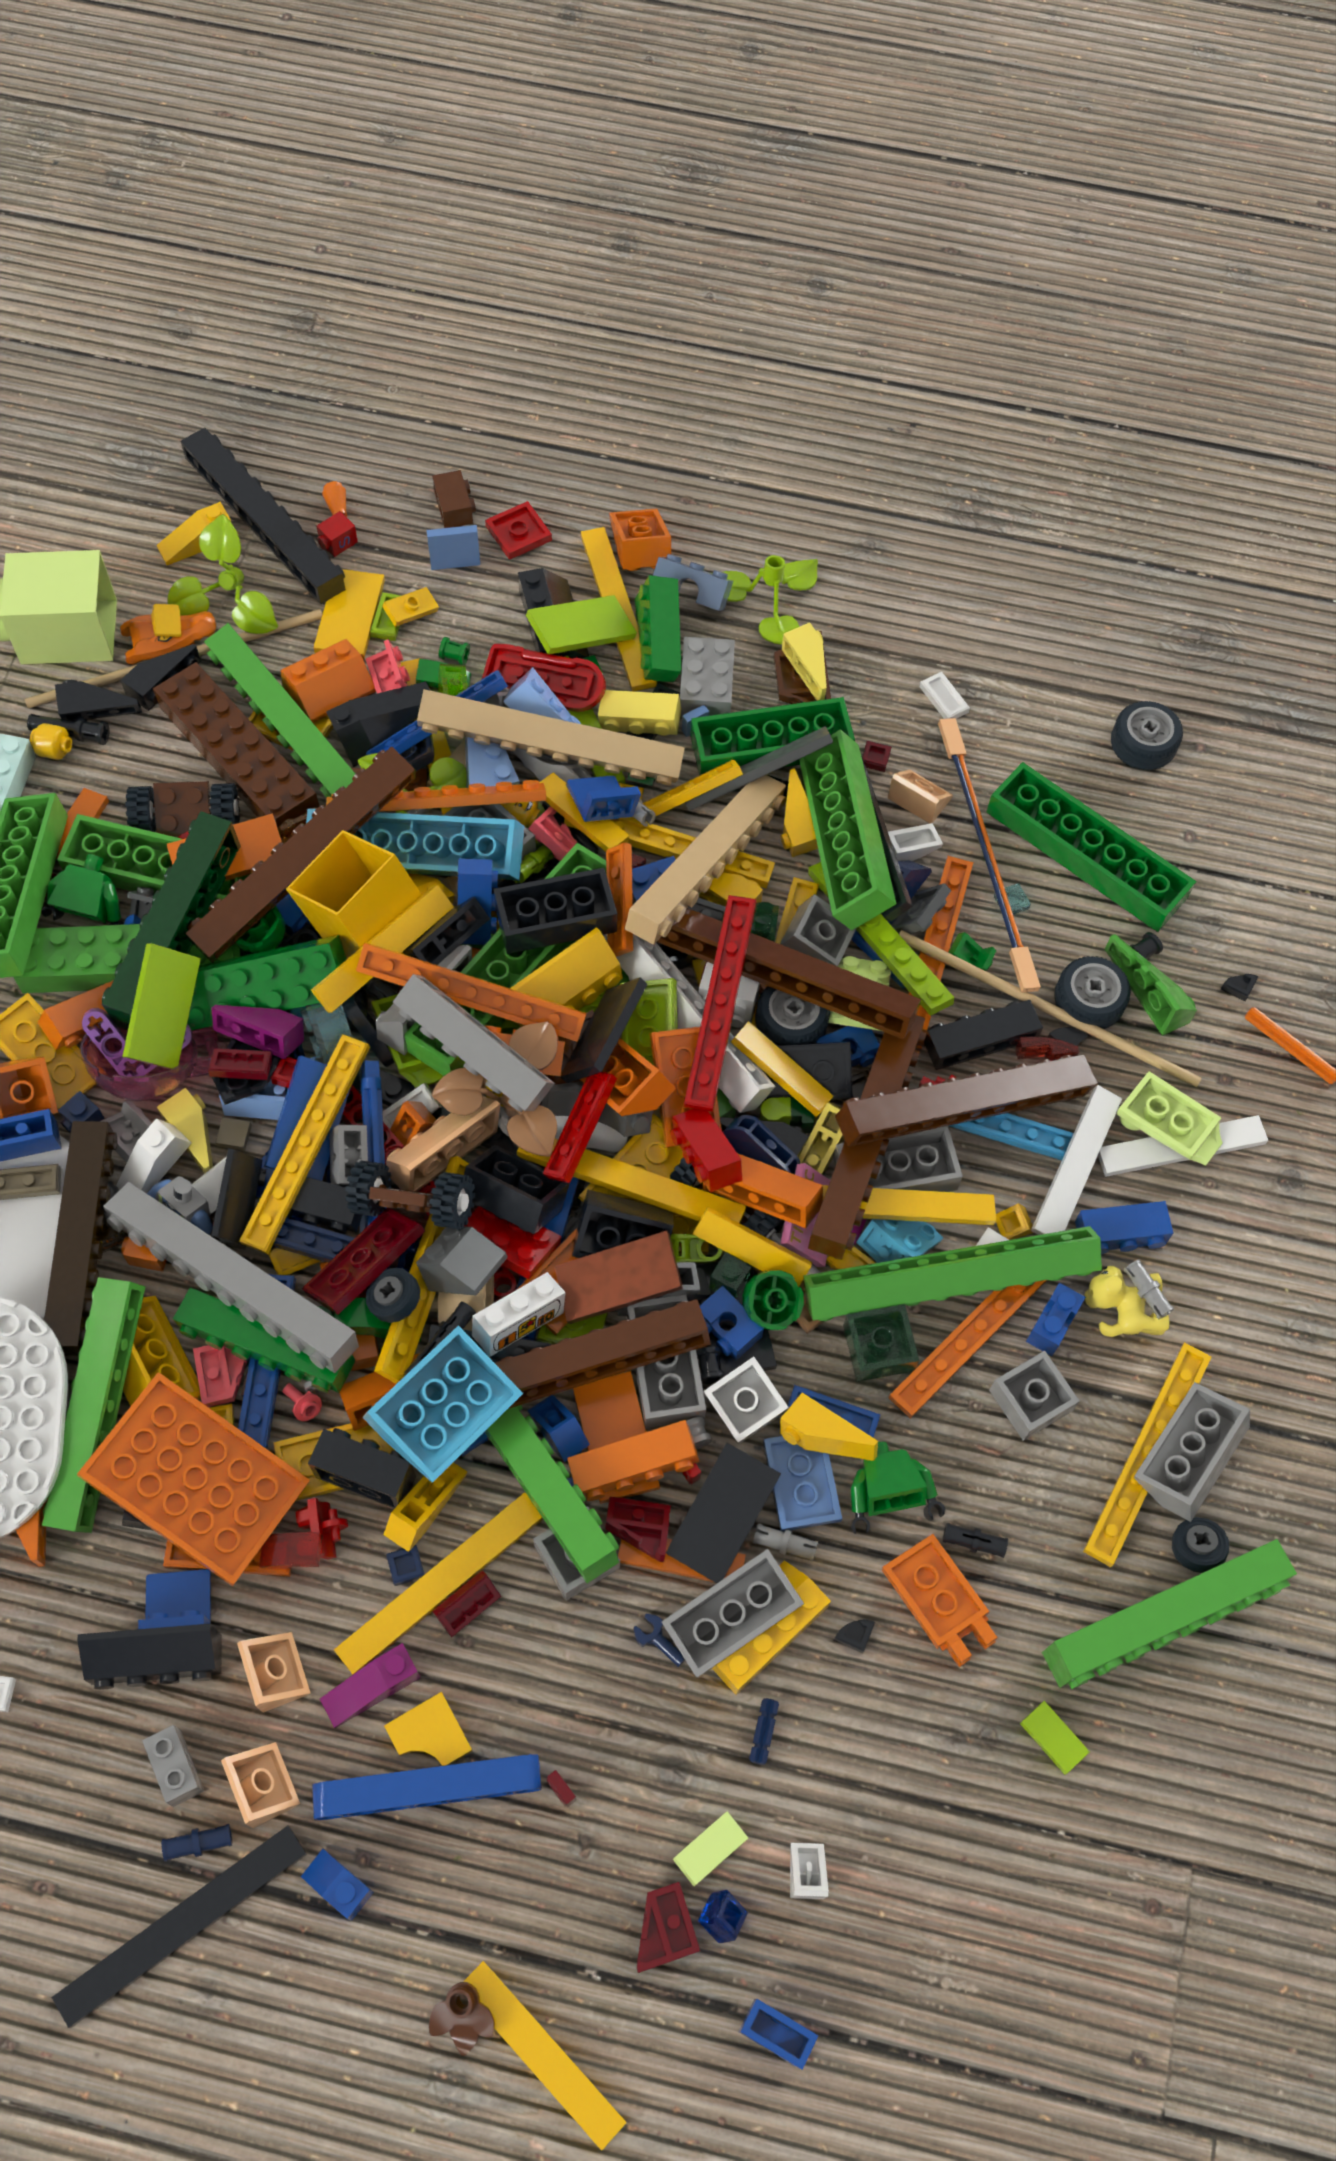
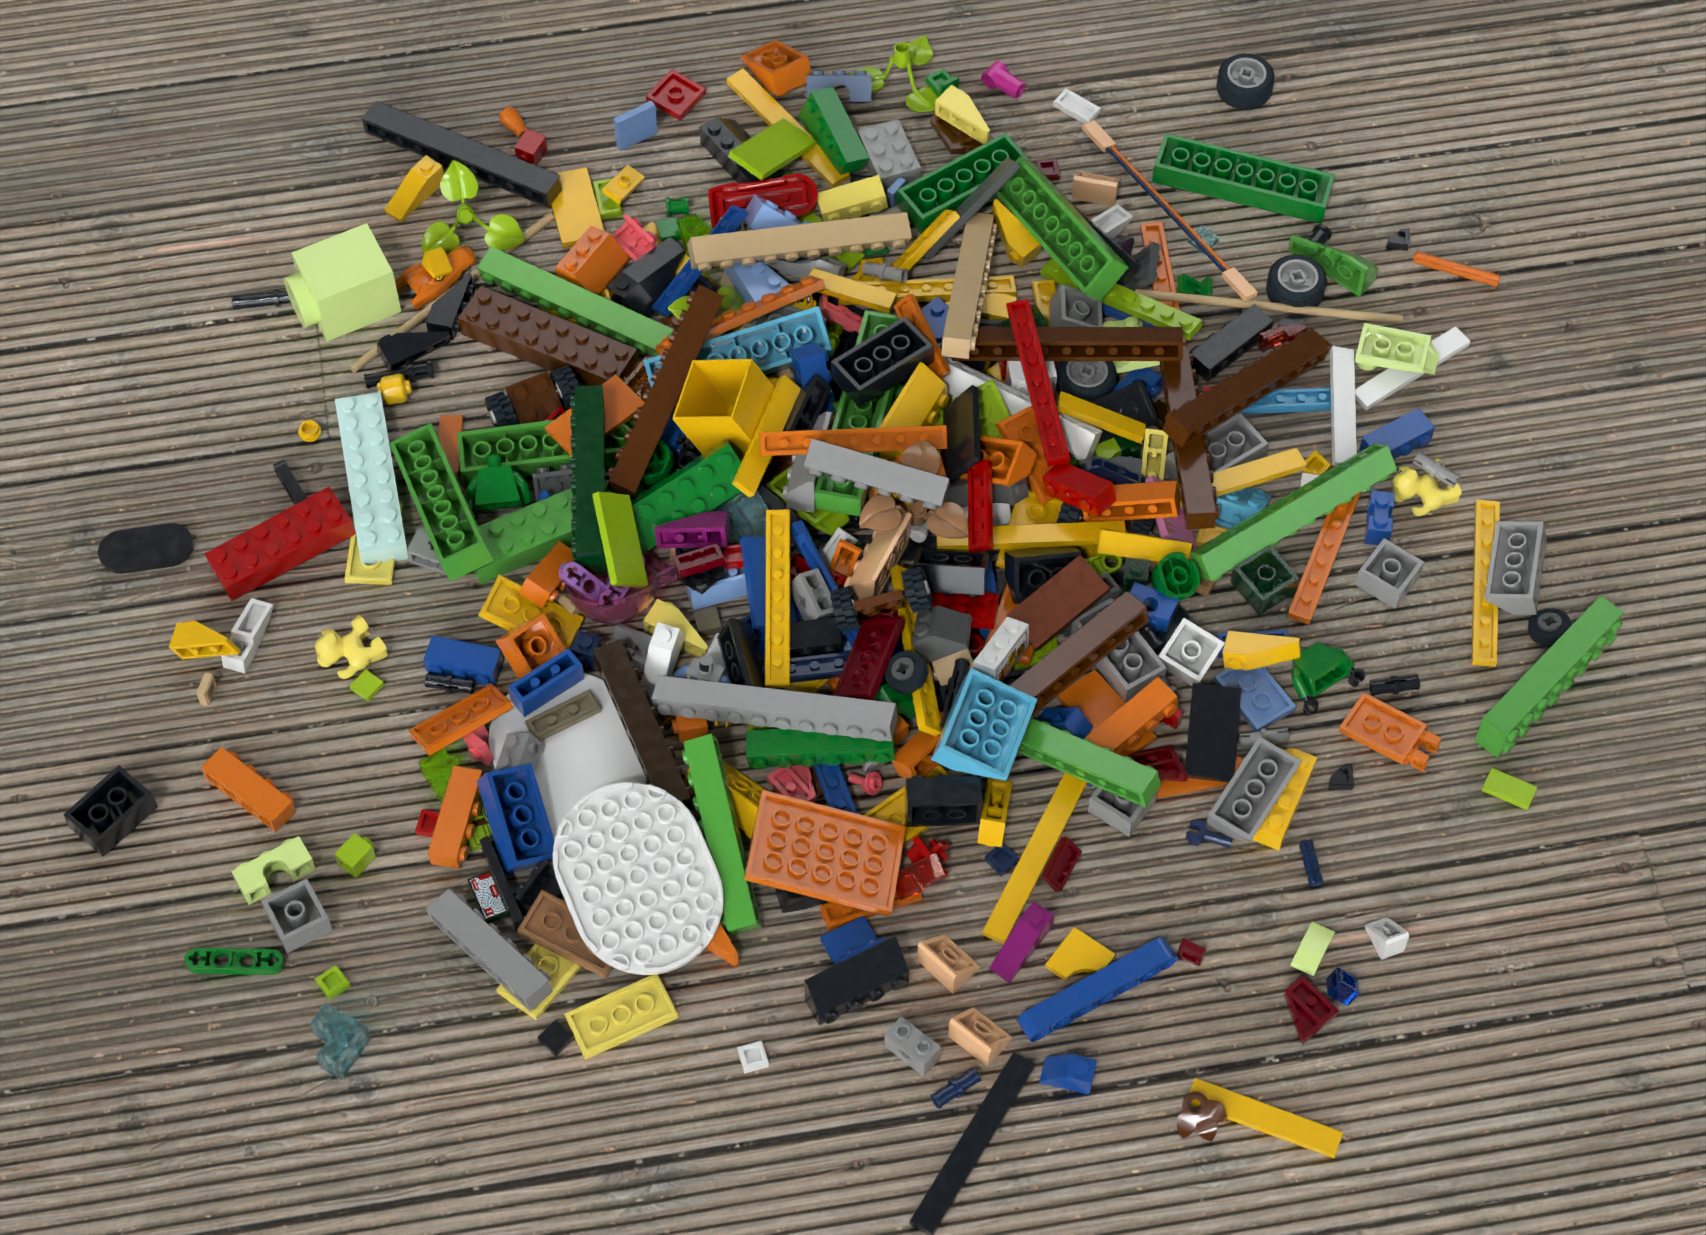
camera: 20 degrees left, 5 degrees down
(453, 499) = (609, 88): reddish brown brick -> none
(603, 798) = (863, 273): blue bracket -> none
(789, 2044) = (1430, 1040): blue brick -> none
(808, 612) = (941, 81): none -> green bracket
(875, 635) = (998, 76): none -> dark pink piece

